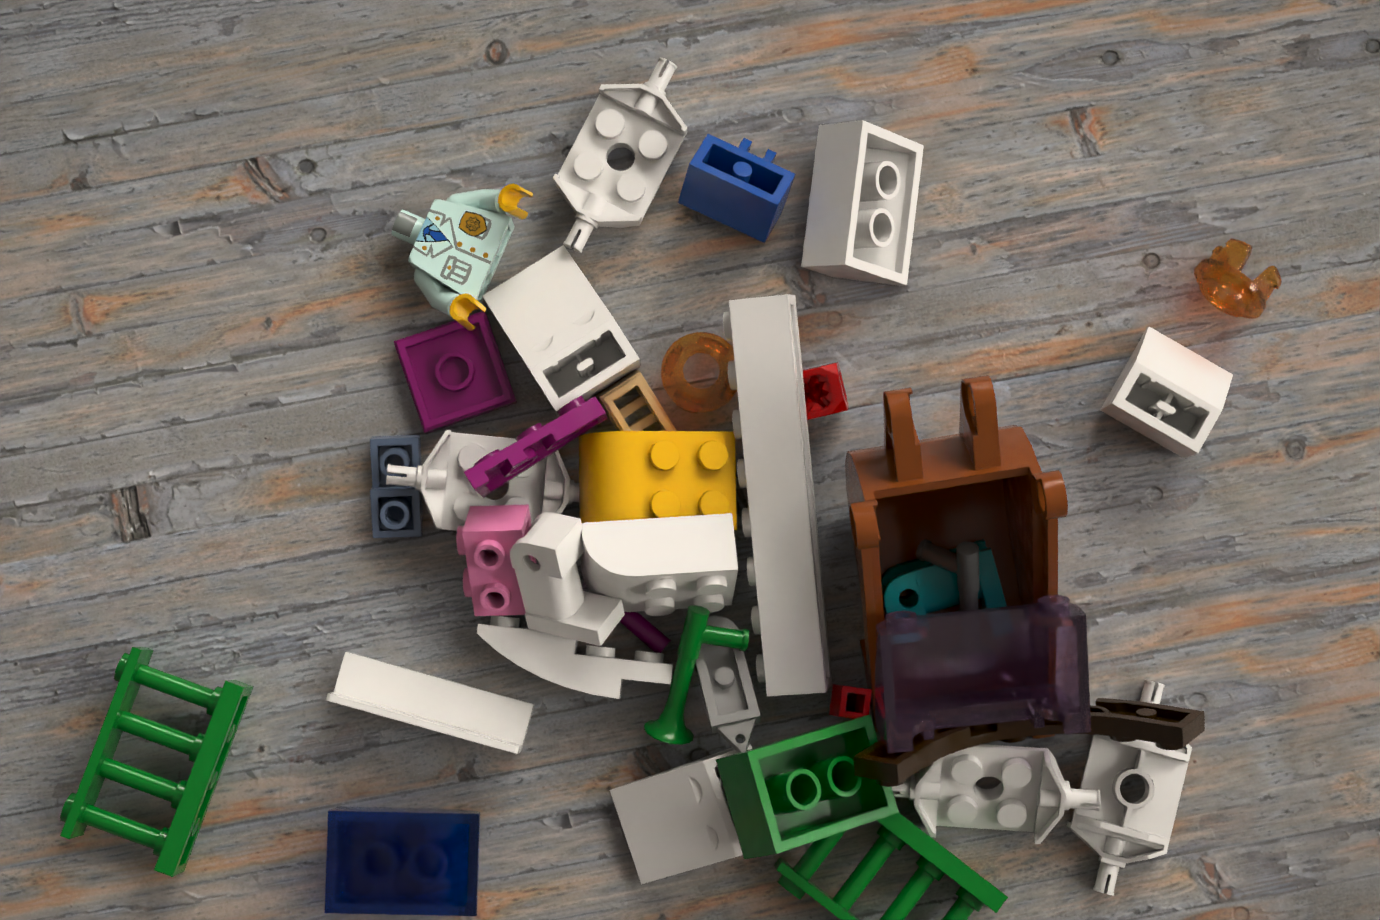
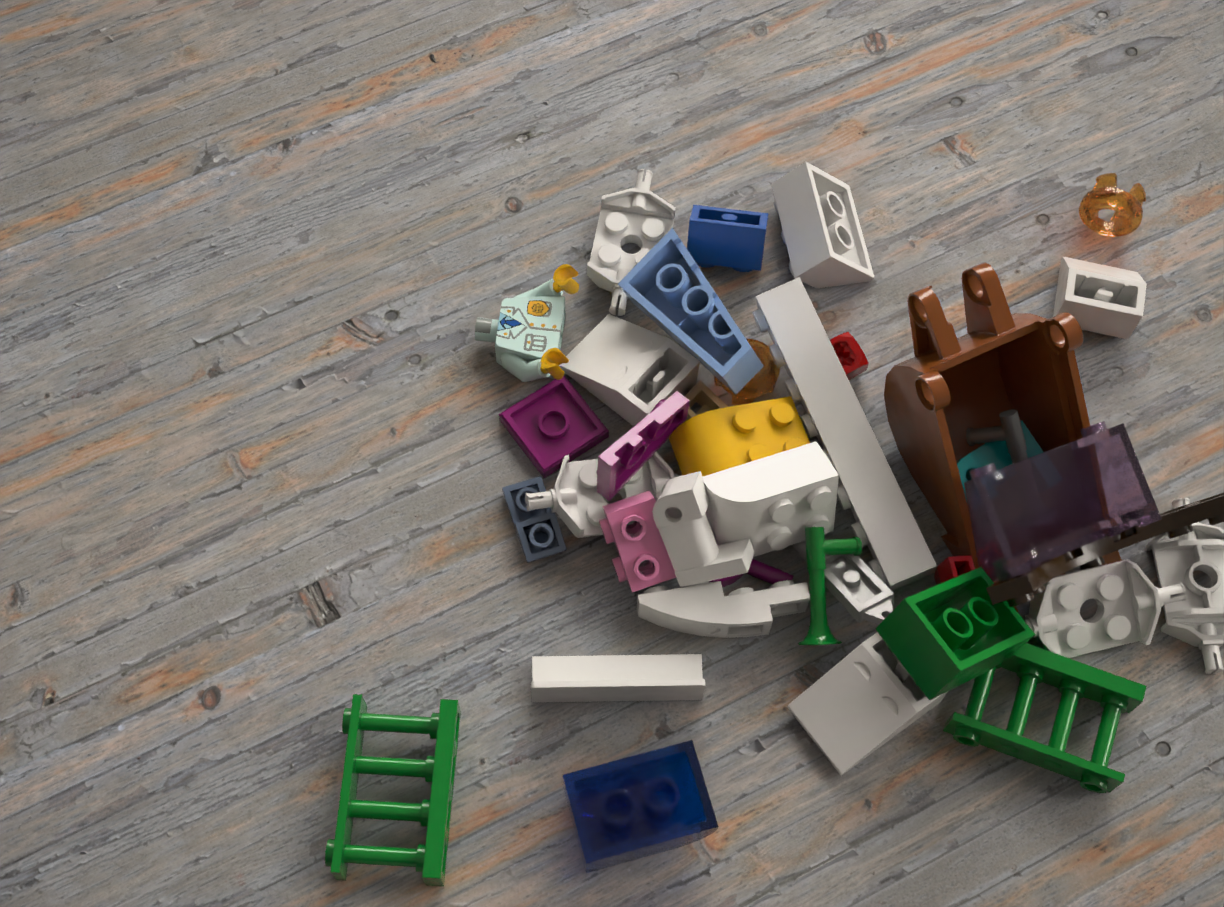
camera: 15 degrees left, 20 degrees down
(649, 293) = (684, 304): none -> light blue wedge

